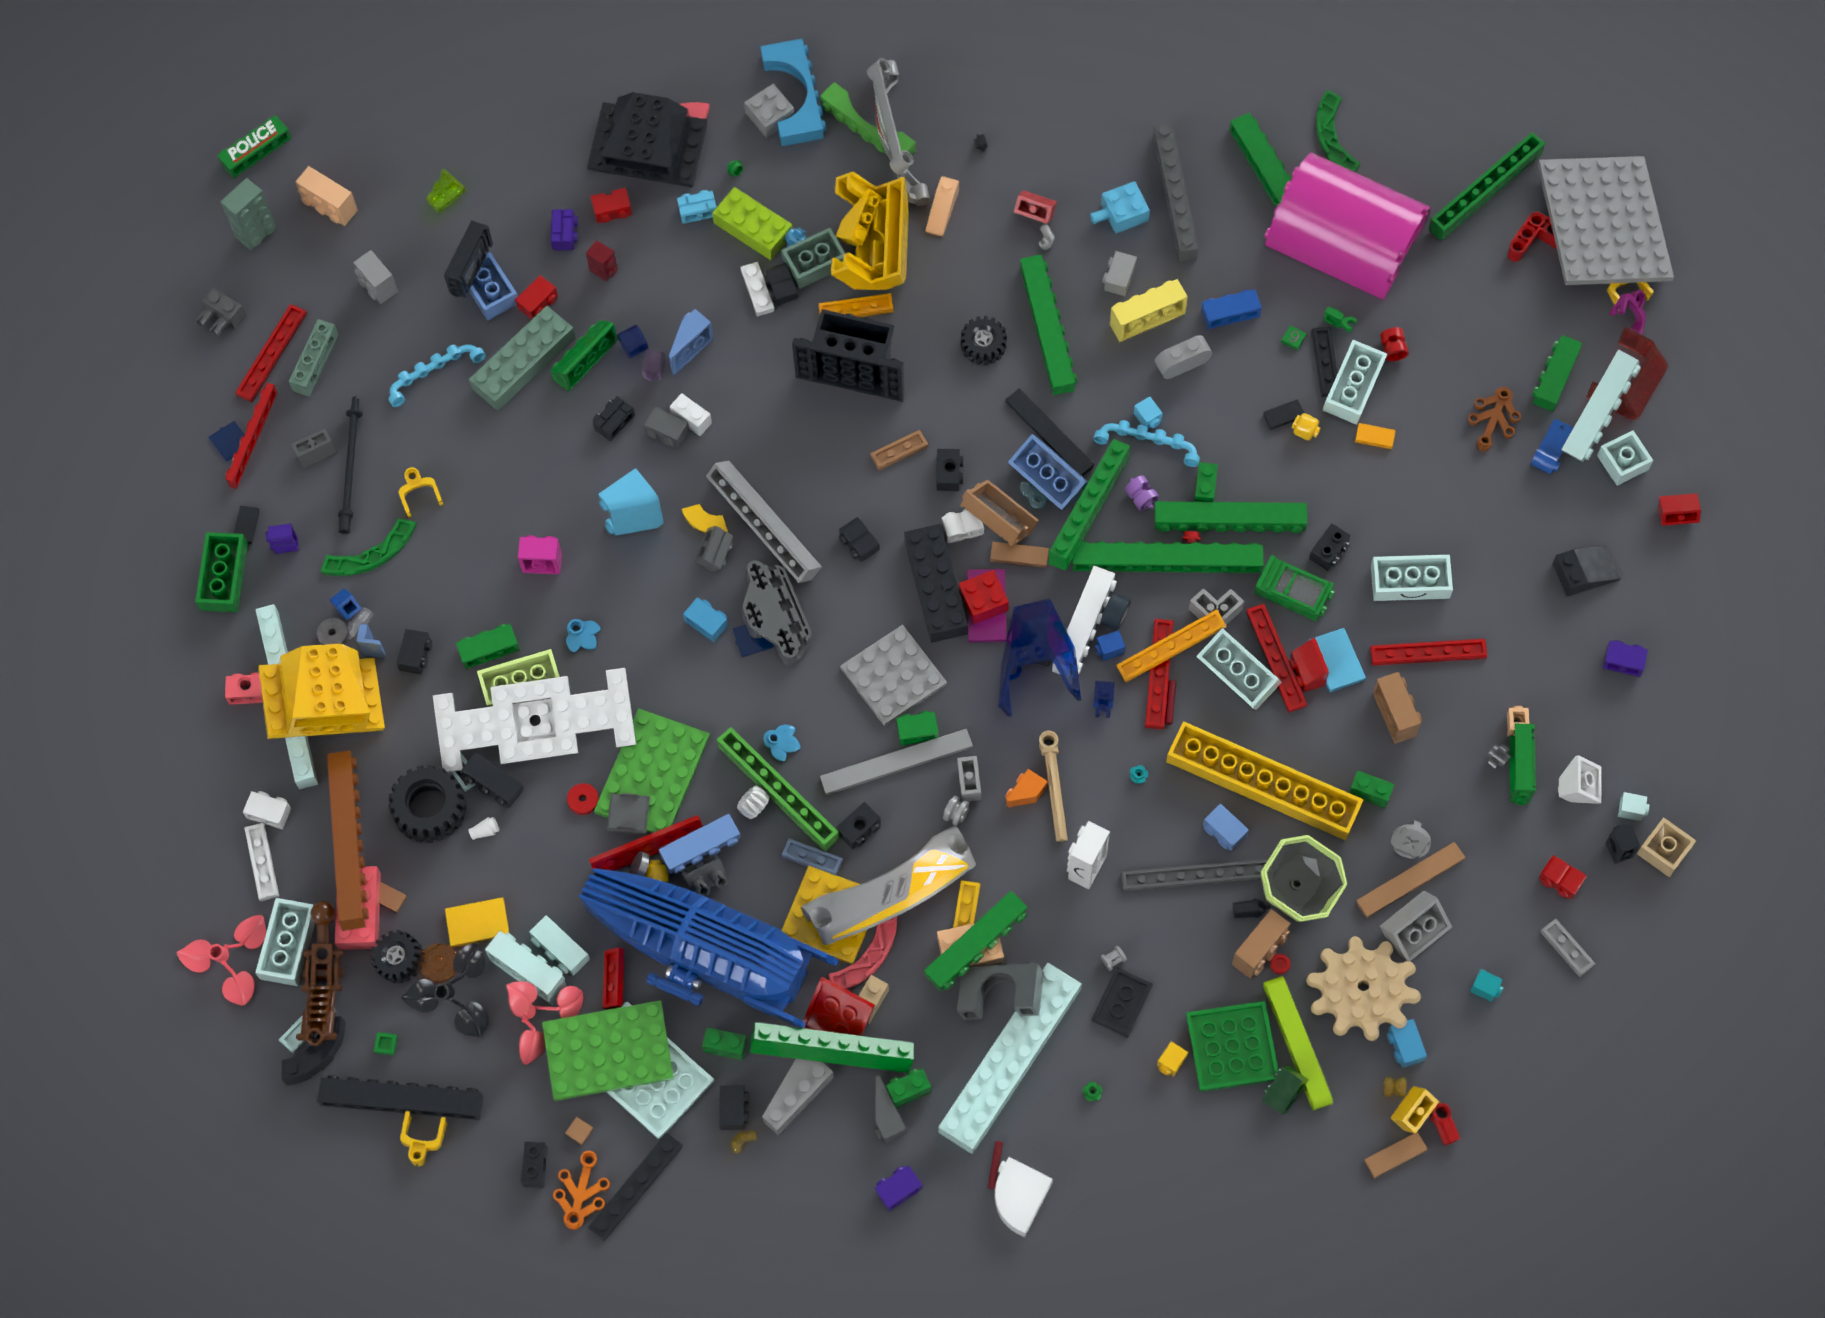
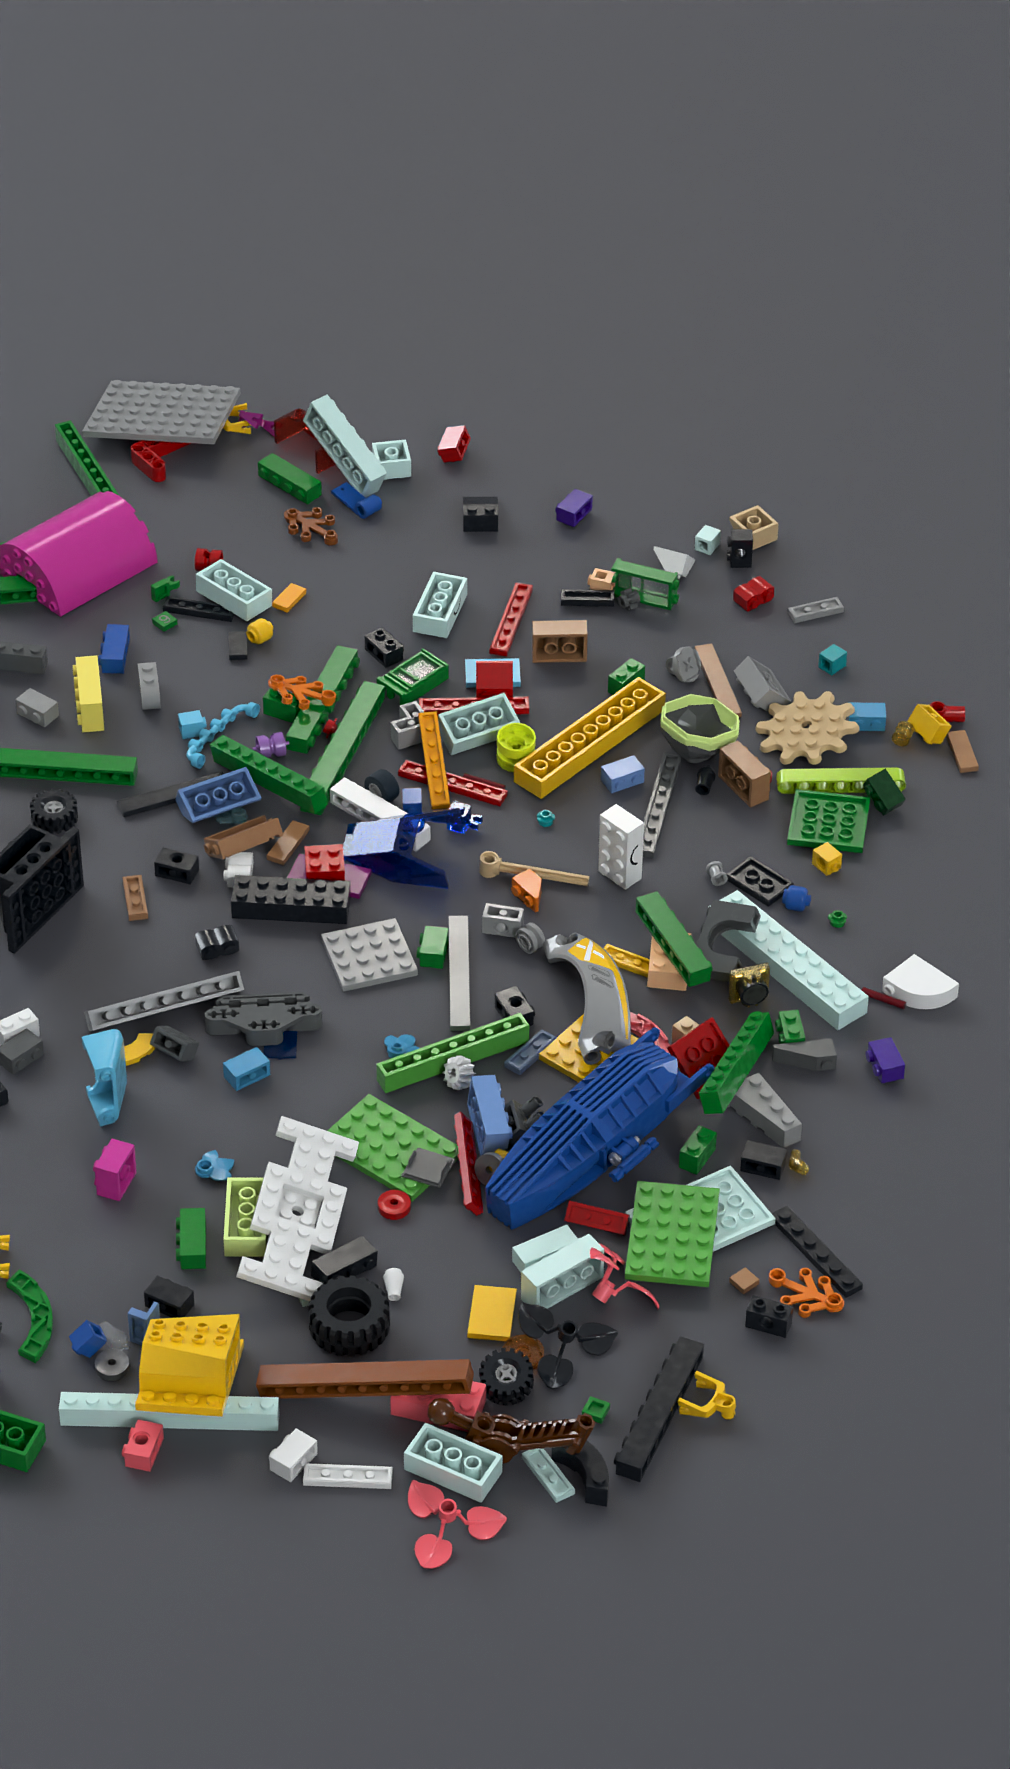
camera: 75 degrees left, 25 degrees down
(952, 1032) = (749, 984): none -> piece
(1102, 1044) = (796, 898): none -> blue head
(1216, 491) = (280, 684): none -> orange plant
(1216, 705) = (513, 744): none -> neon yellow wheel
(1488, 715) = (587, 598): none -> black plate

